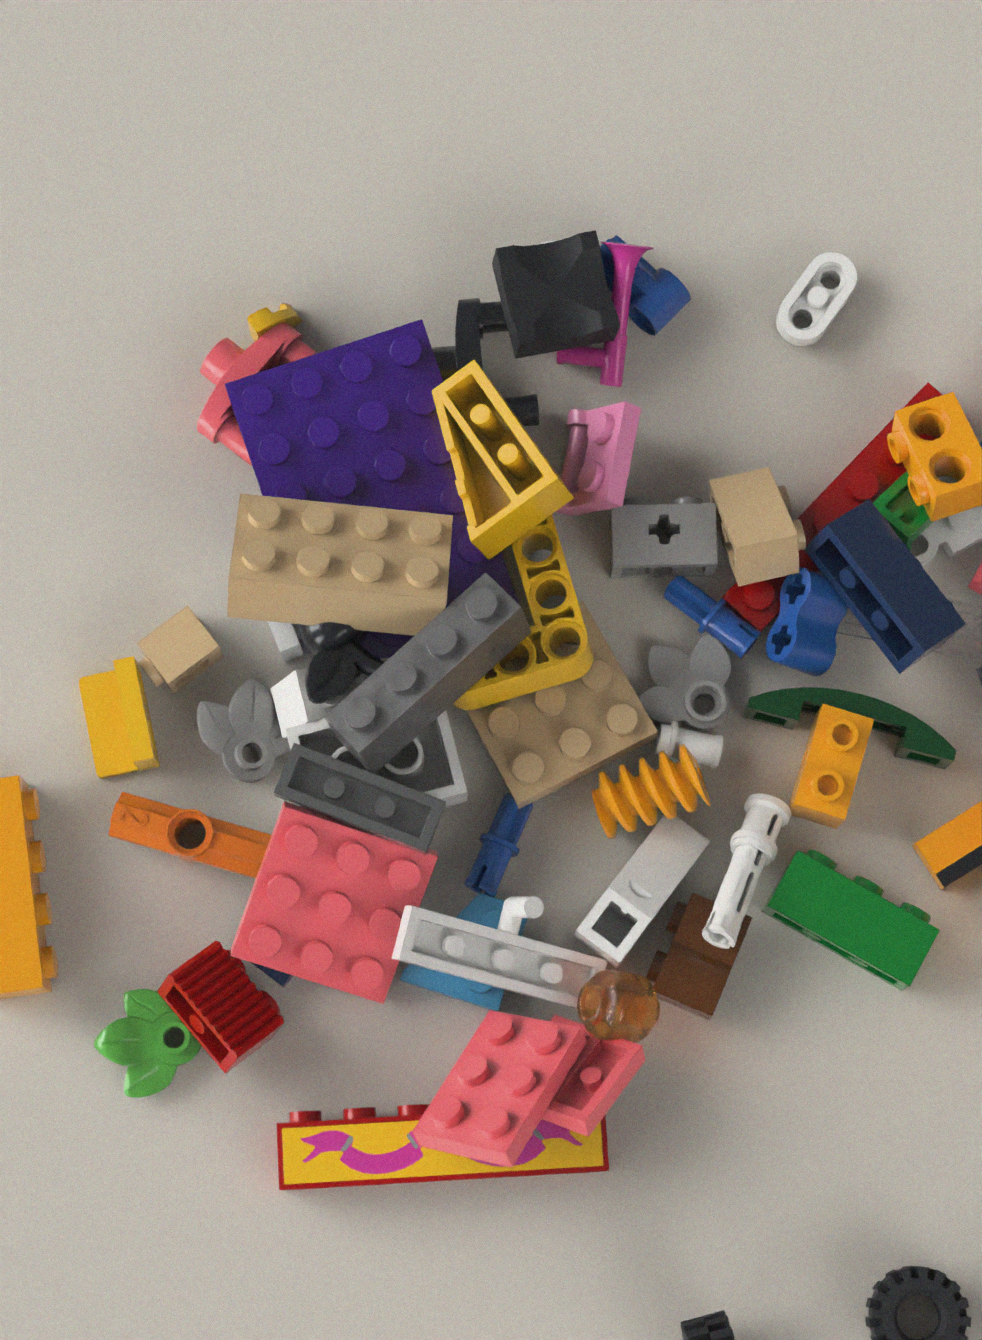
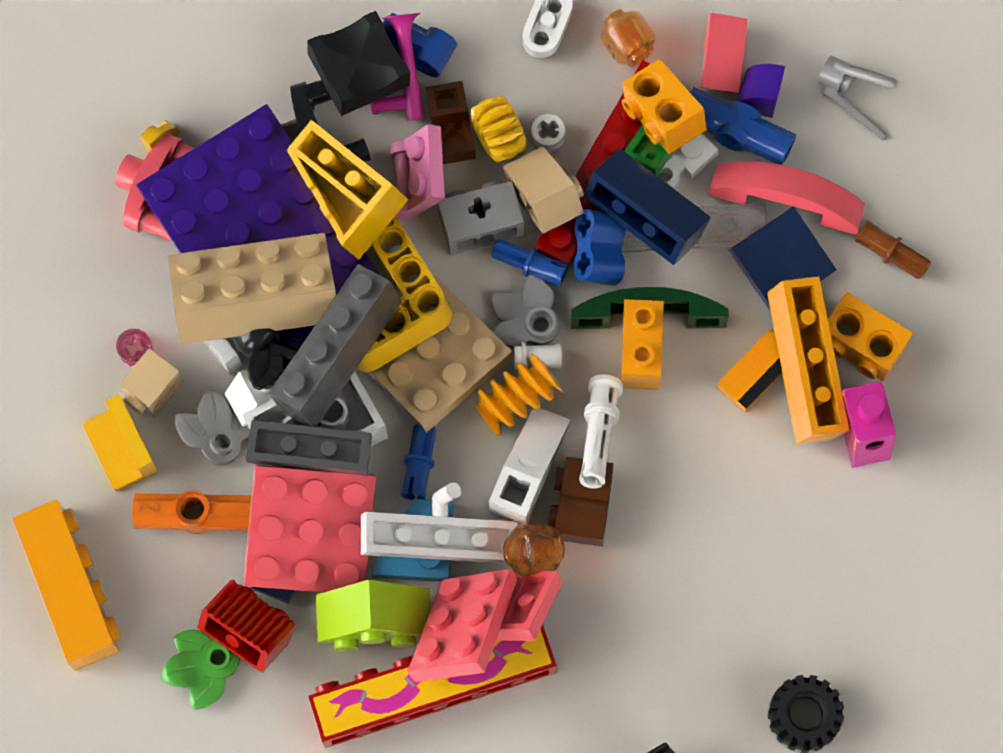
camera: 10 degrees left, 5 degrees down
(167, 581) = (128, 338): none -> clear pink bush
(386, 1038) = (372, 614): none -> lime brick
(658, 392) = (450, 111): none -> reddish brown slope
(715, 428) = (498, 129): none -> yellow gear
(781, 432) = (548, 121): none -> white bush
(851, 918) = (684, 447): green brick -> none
(916, 347) = (628, 37): none -> clear orange head

